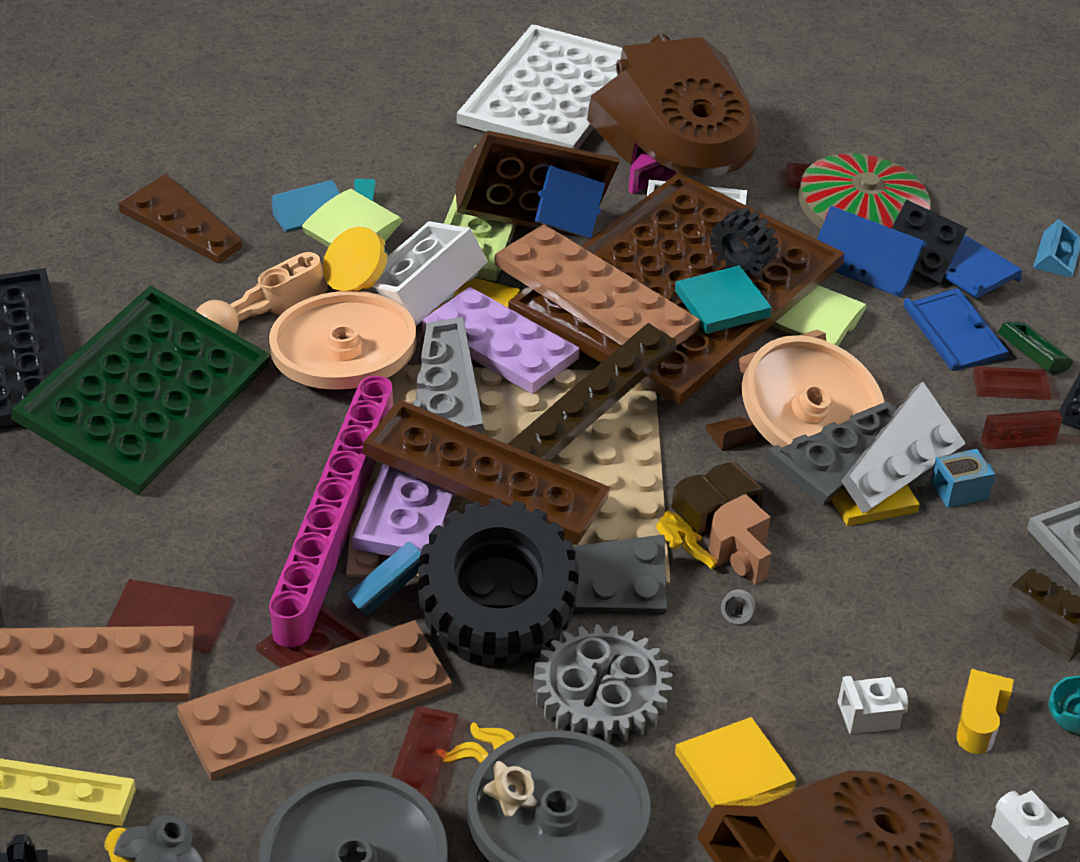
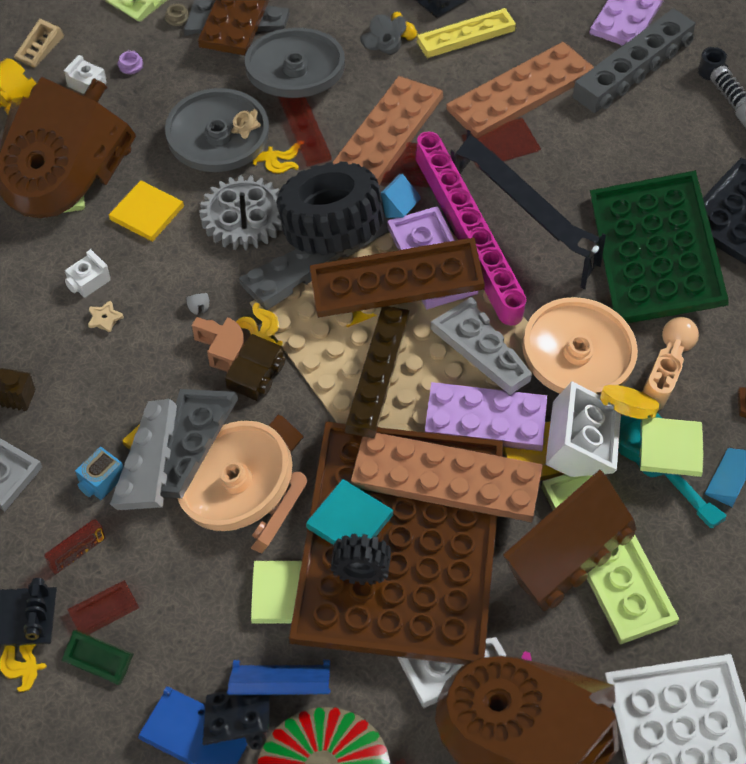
camera: 150 degrees right, 15 degrees up
(250, 555) = (530, 201): none -> black piece
(569, 202) = (521, 525): blue piece -> none
(870, 658) = (104, 323): none -> tan plate
(956, 330) = (172, 641): blue door -> none
(979, 717) = (24, 311): yellow leg -> none

